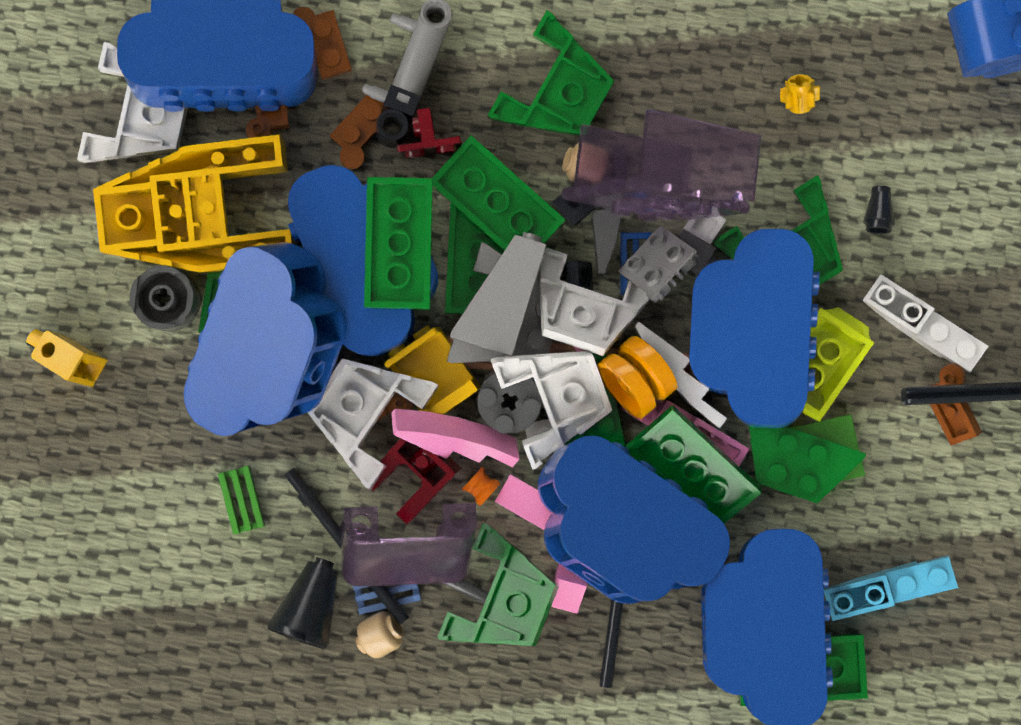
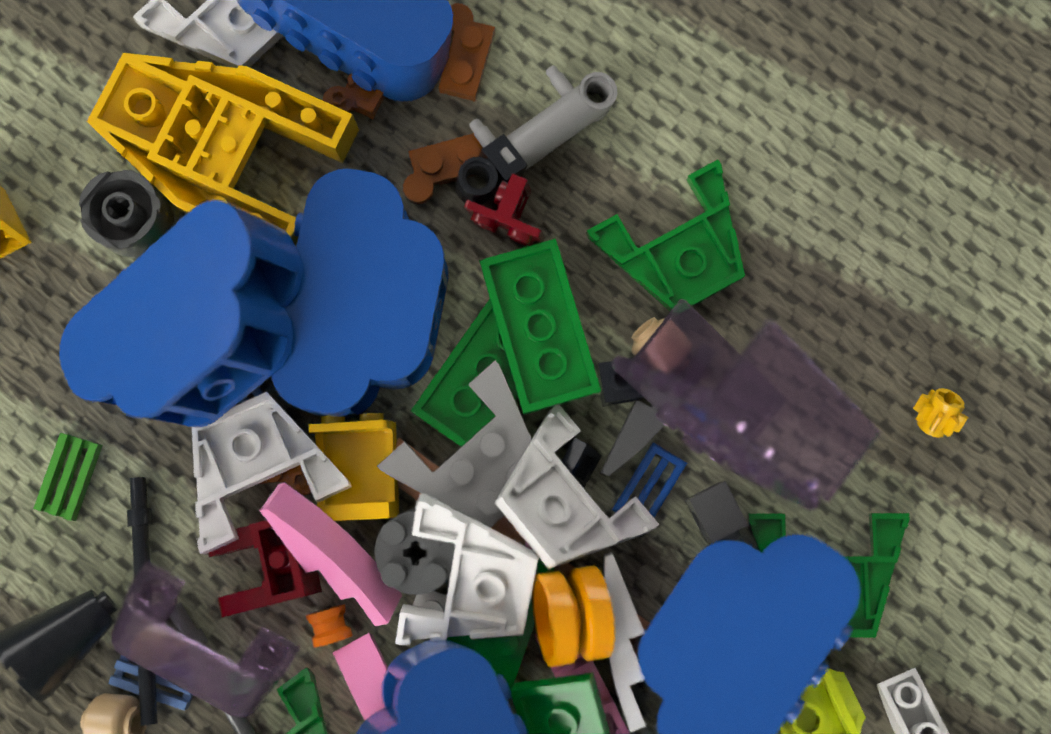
camera: 30 degrees right, 5 degrees down
(398, 243) = (399, 303): green plate -> none
(501, 303) = (474, 438): light grey slope -> none
(658, 262) = (674, 502): light grey hinge -> none
(705, 227) = (748, 494): white plate -> none
(879, 213) = (953, 596): black cone -> none

